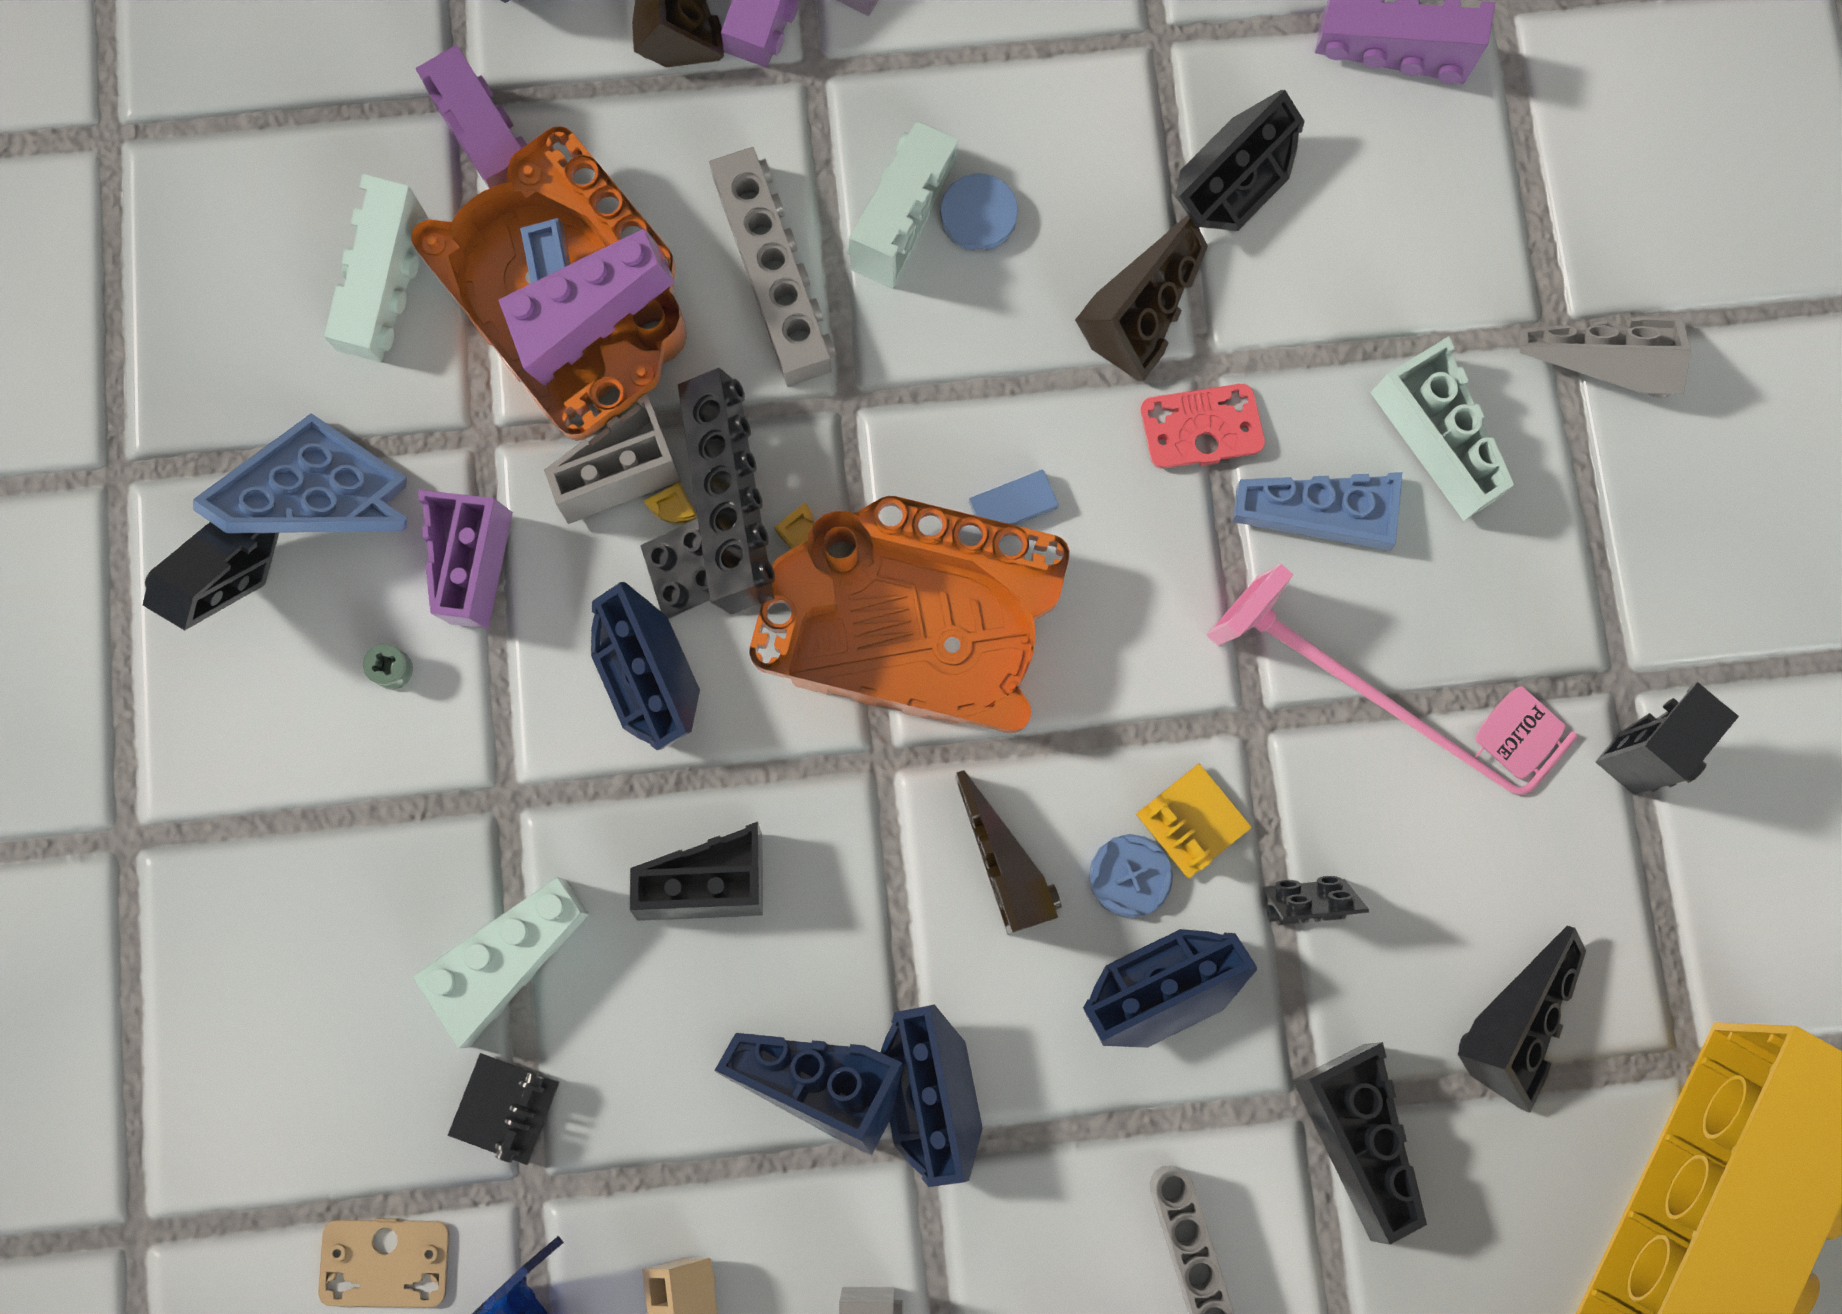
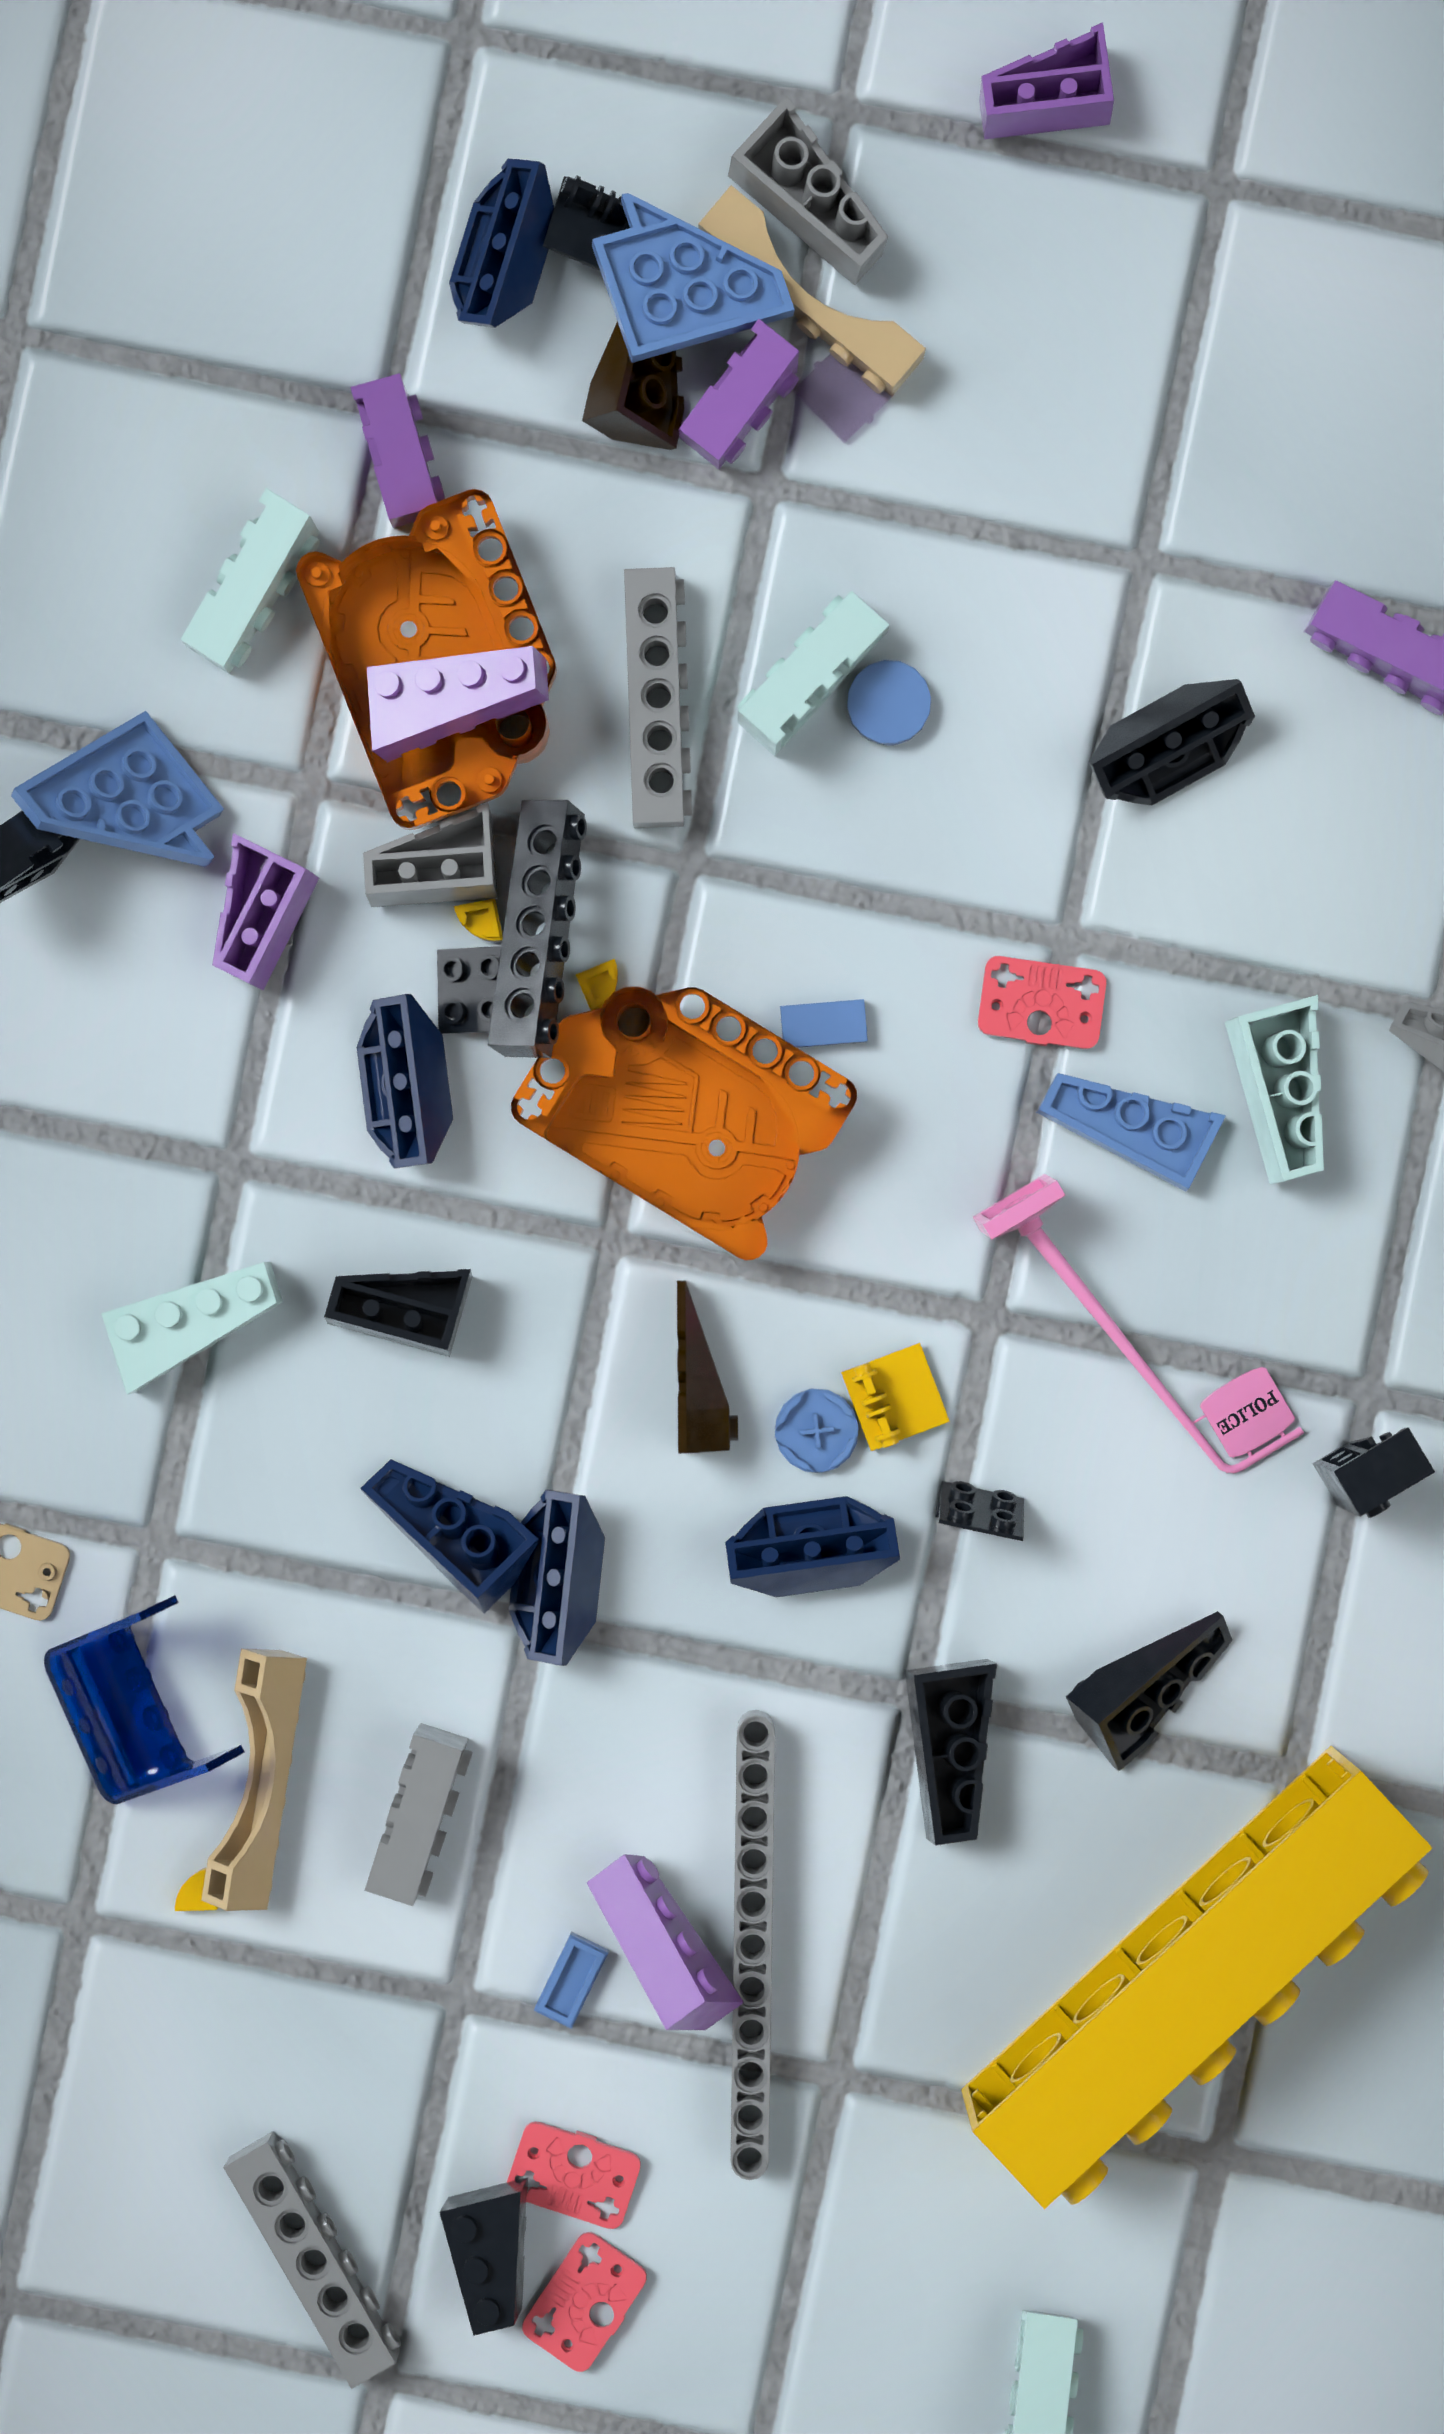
camera: 15 degrees right, 10 degrees up
(394, 673) = (163, 998): sand green wheel -> none
(503, 1109) = (151, 1461): black hinge -> none
(545, 248) = (428, 622): medium blue tile -> none
(1134, 309) = (1015, 859): dark brown wedge -> none

